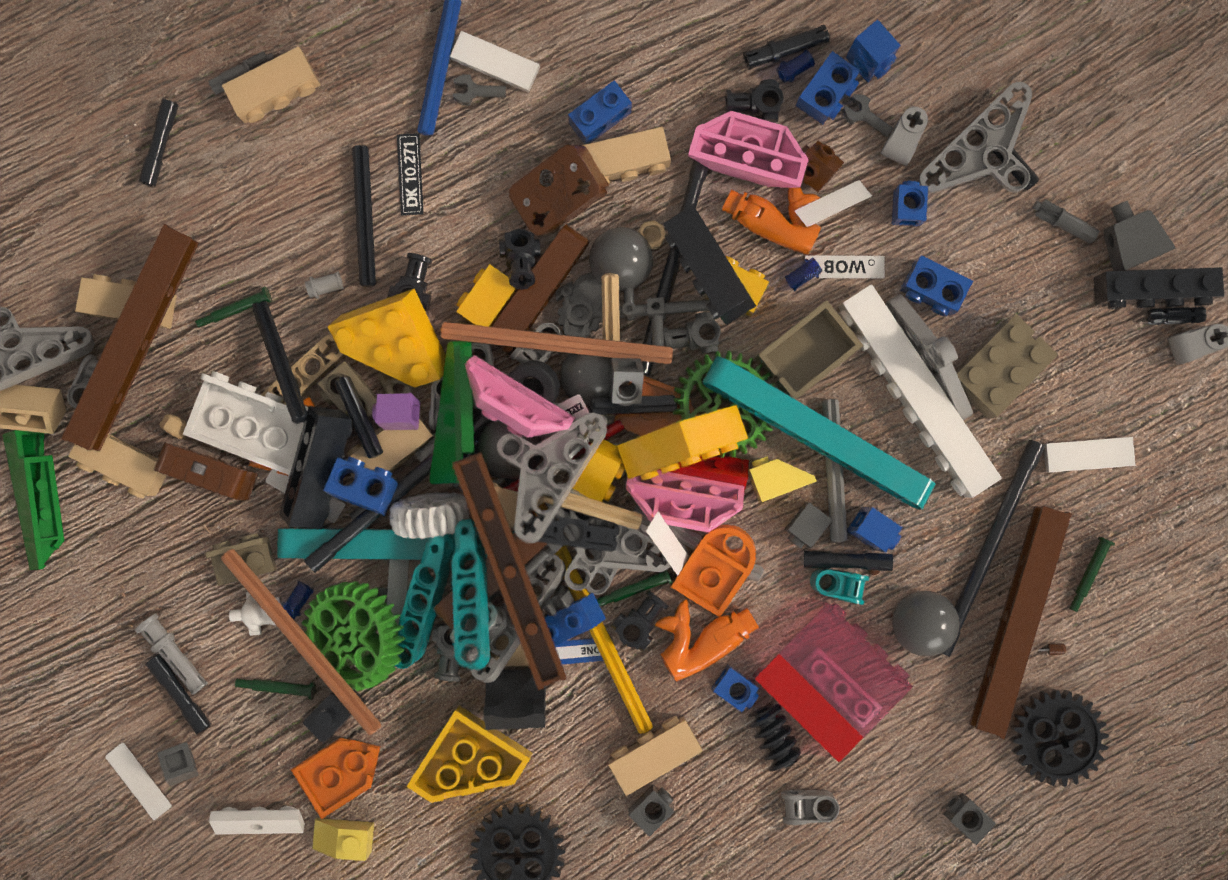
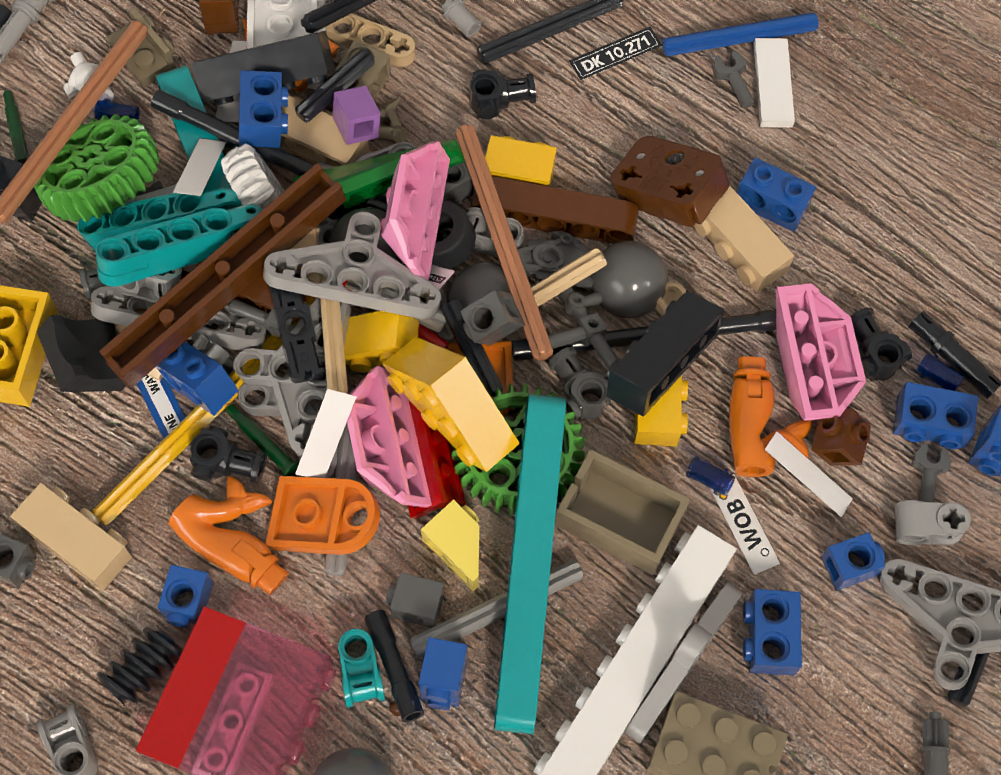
camera: 65 degrees right, 20 degrees down
(392, 339) = (433, 88): yellow brick -> none
(393, 554) = (199, 167): none -> white sticker
(520, 253) = (584, 172): black connector -> none

